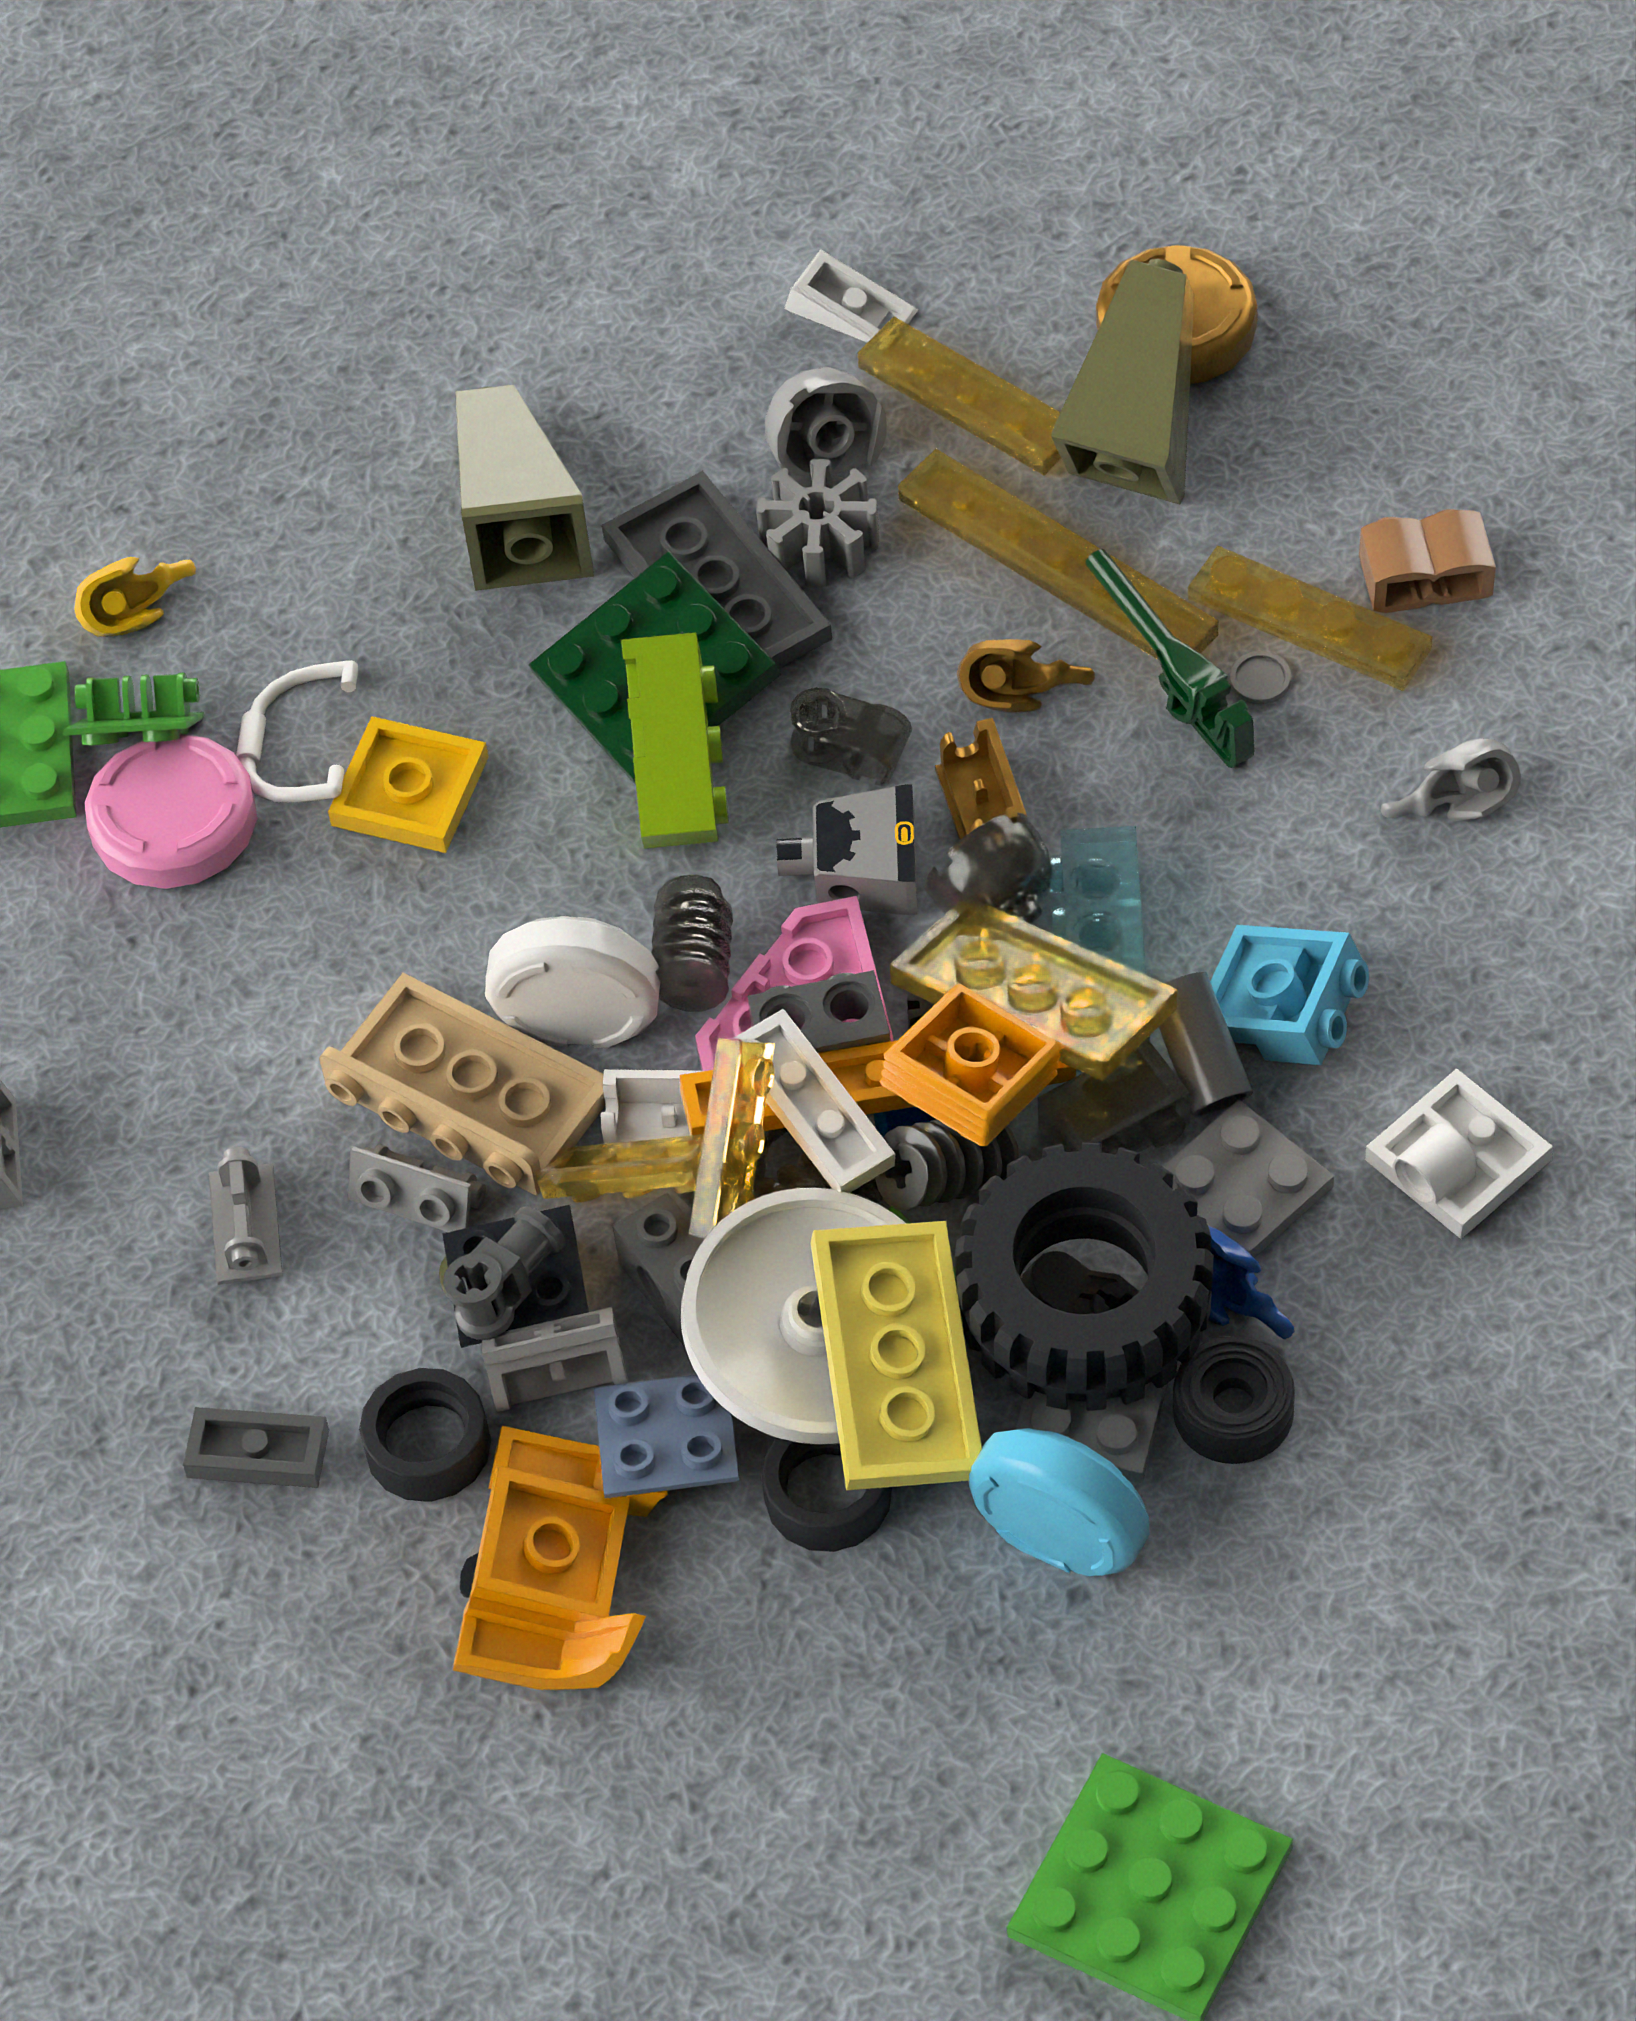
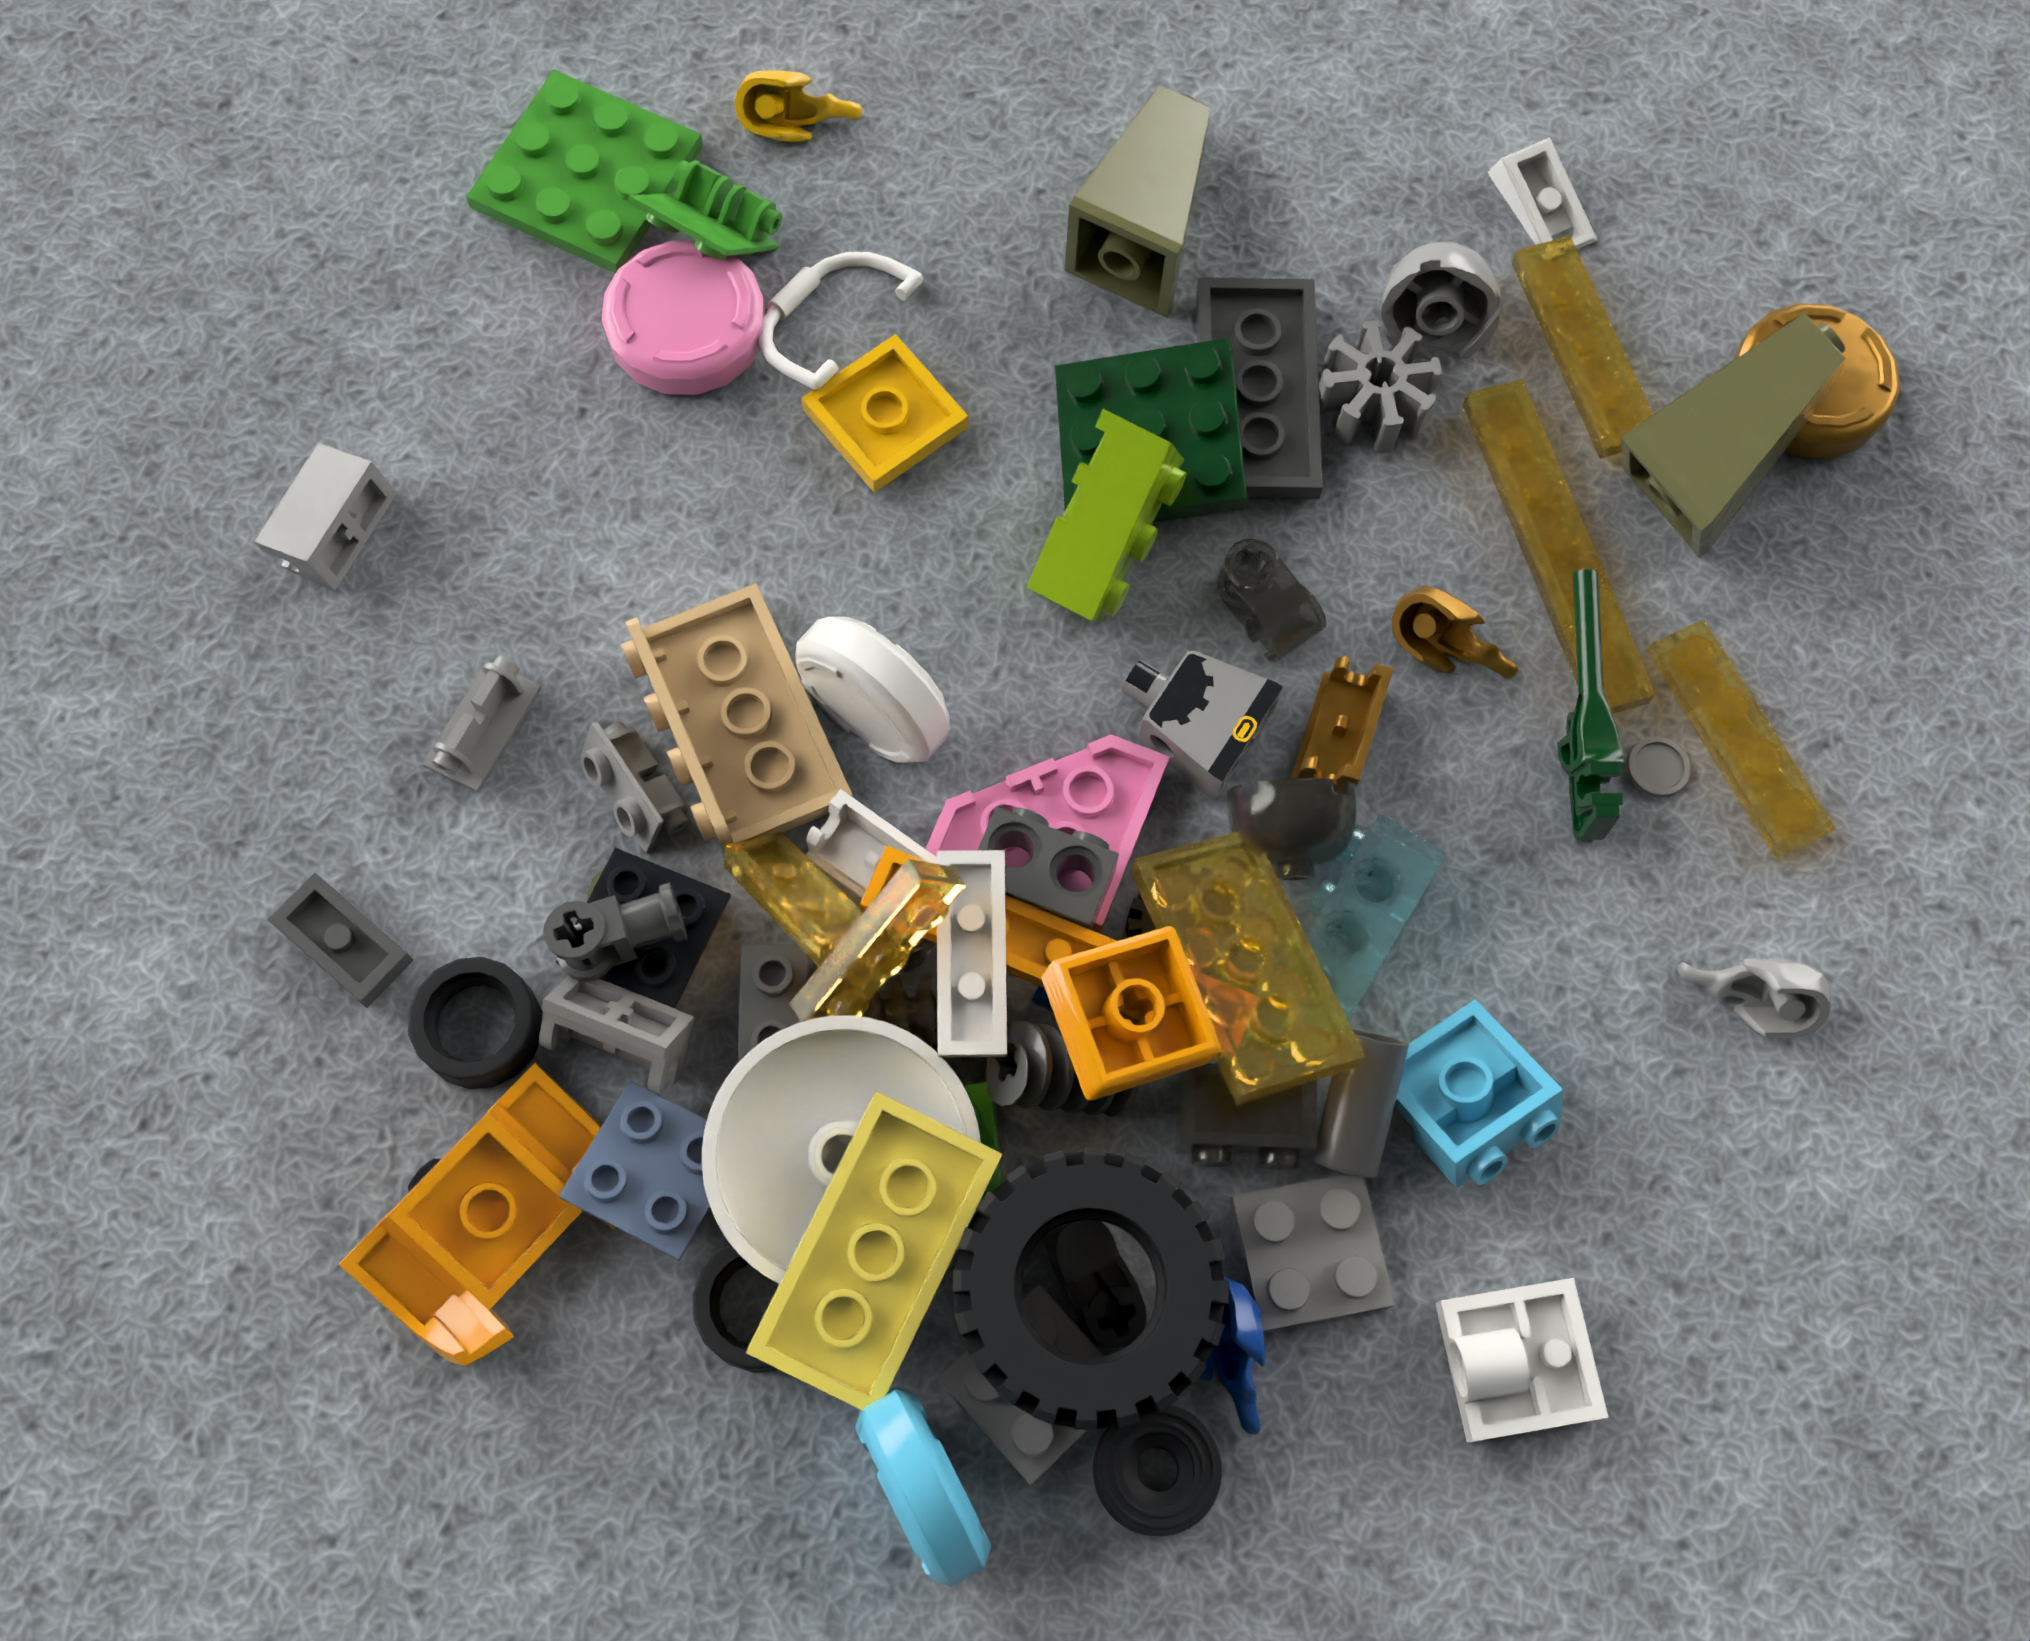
camera: 25 degrees right, 15 degrees up
(692, 943) = (999, 713): clear smoke piece -> none
(1426, 560) = (1880, 753): medium nougat brick -> none

